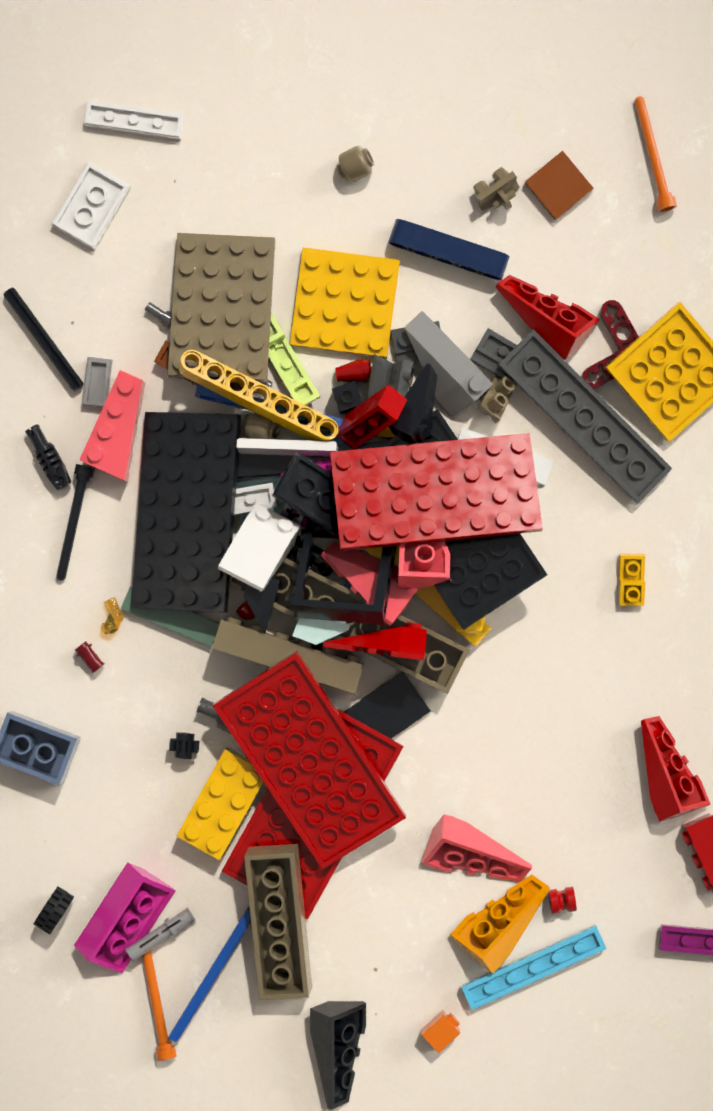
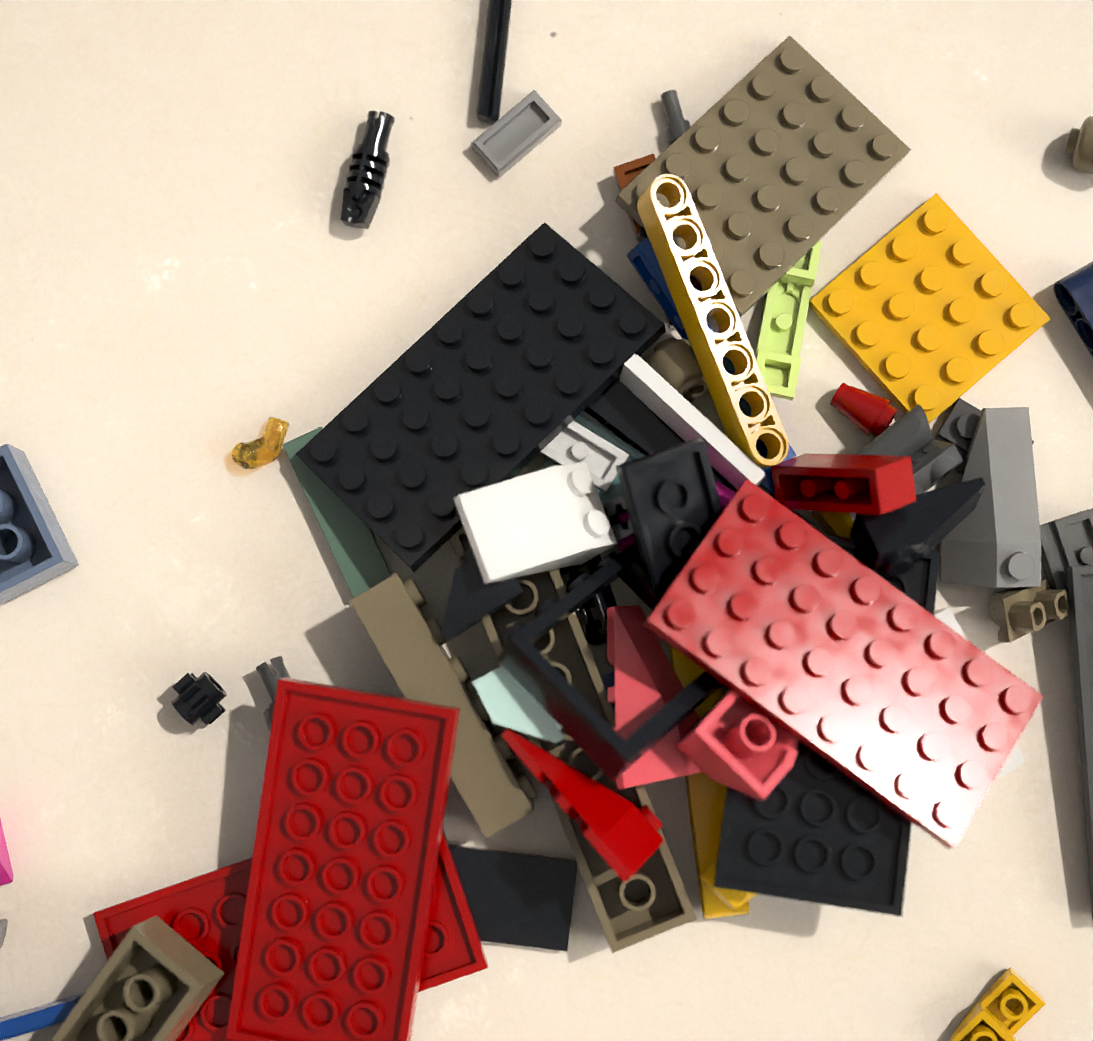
camera: 35 degrees right, 5 degrees down
(83, 475) = (391, 233): black piece -> none
(89, 657) = (185, 470): dark red pin -> none
(116, 428) = (489, 207): coral wedge -> none
(221, 804) = (172, 824): yellow brick -> none
(245, 611) = (438, 594): red hinge -> none
(346, 397) = (825, 431): black brick -> none

